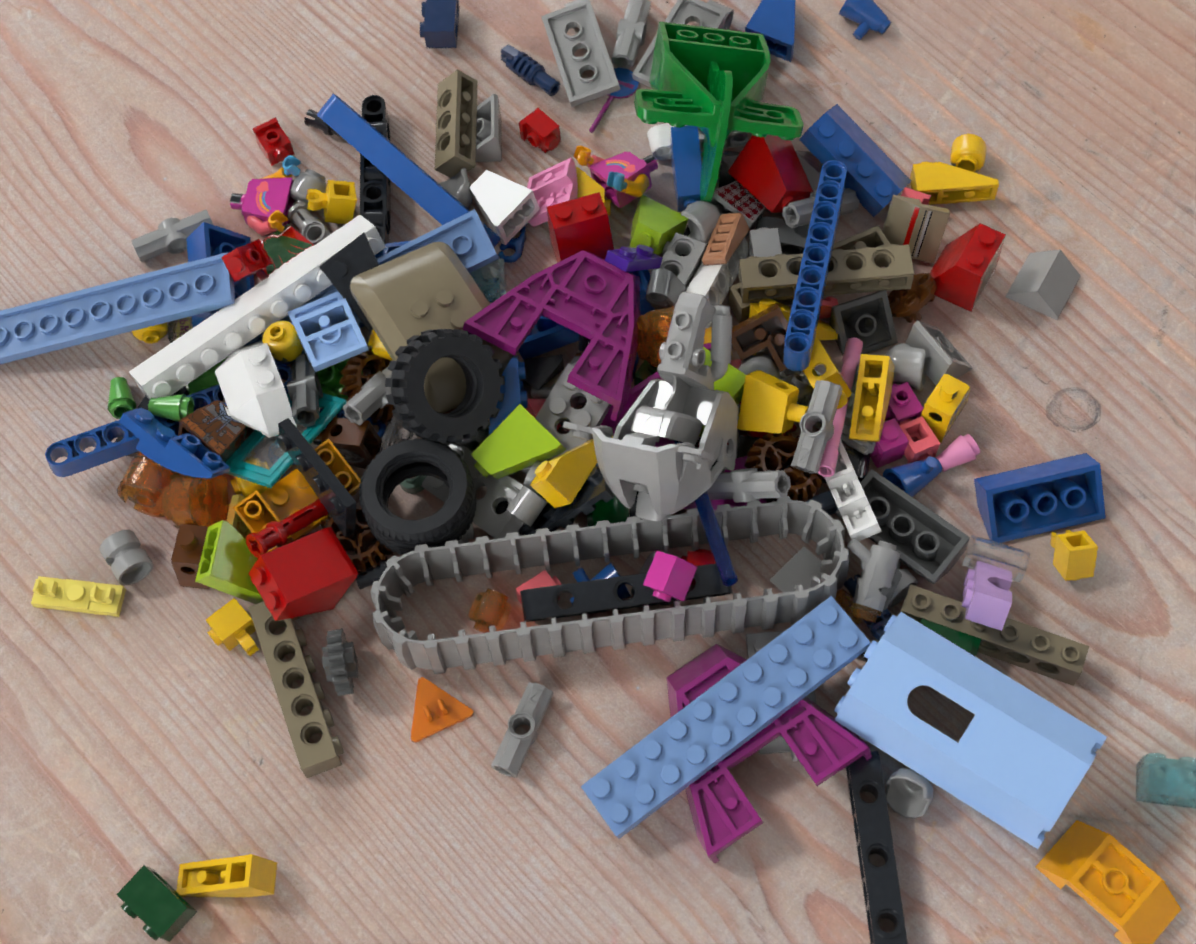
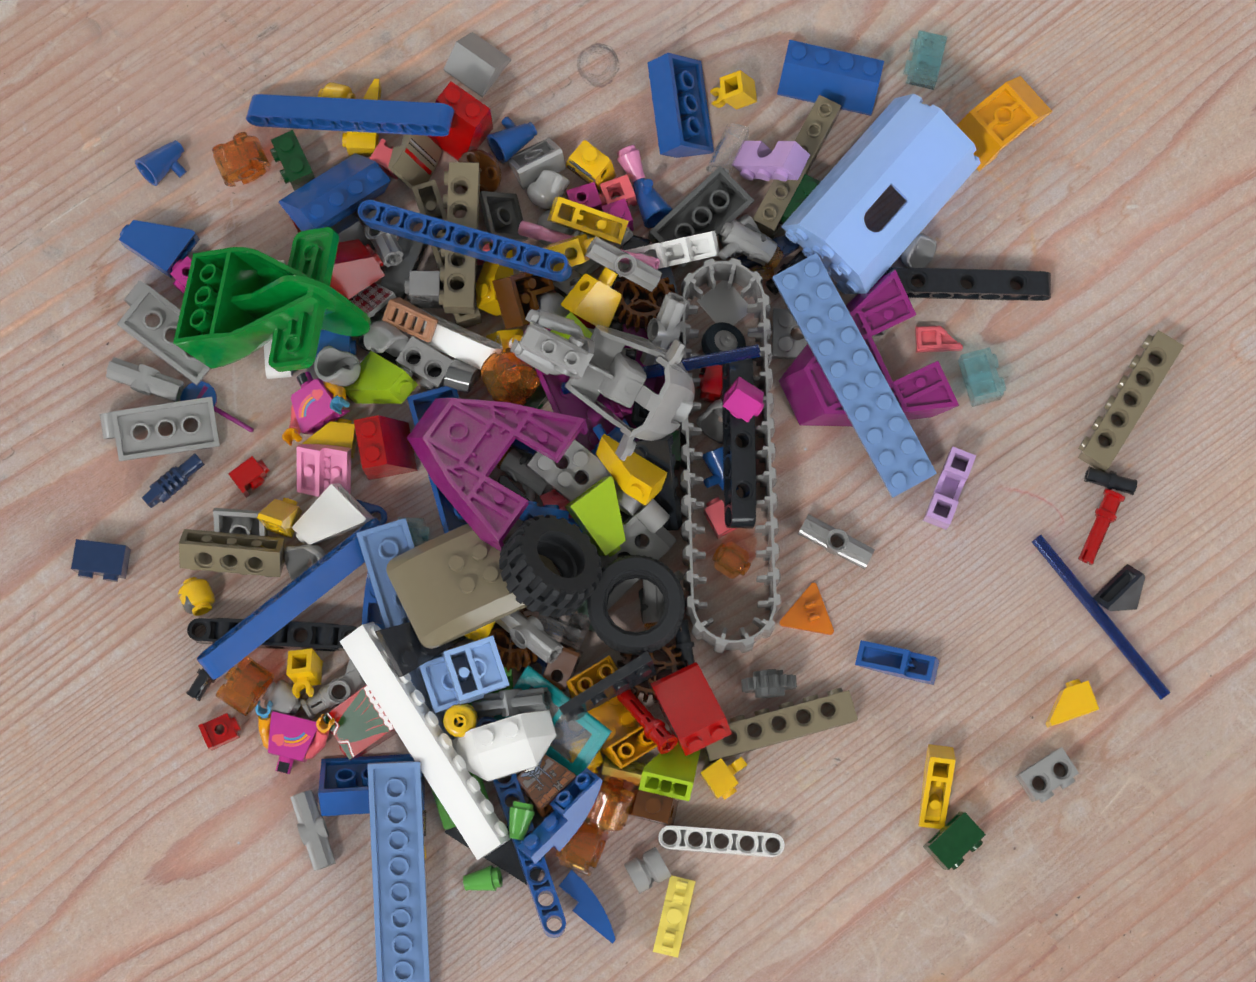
camera: 90 degrees left, 15 degrees up
(85, 505) = (589, 906): none -> blue slope
(164, 646) = (733, 836): none -> white beam
(246, 260) = (377, 747): red brick -> none
(319, 150) = (245, 685): none -> clear orange brick
(377, 819) = (897, 662): none -> blue slope
(410, 104) = (196, 596): none -> yellow head
(494, 150) = (280, 516): none -> yellow slope
(584, 855) = (949, 487): none -> lavender arch
(634, 258) = (428, 397): dark purple plate -> none
(661, 180) = (337, 366): none -> light grey hair
(754, 888) = (981, 376): none -> clear light blue brick
(755, 572) = (722, 337): none -> black wheel
(798, 829) = (935, 340): none -> coral tile
(879, 73) = (240, 159): none -> clear orange brick
(892, 121) = (293, 160): none -> dark green brick
(948, 159) = (350, 115): none -> blue beam
(958, 325) = (509, 141): none -> blue piece
(1119, 666) = (834, 74): none -> blue slope

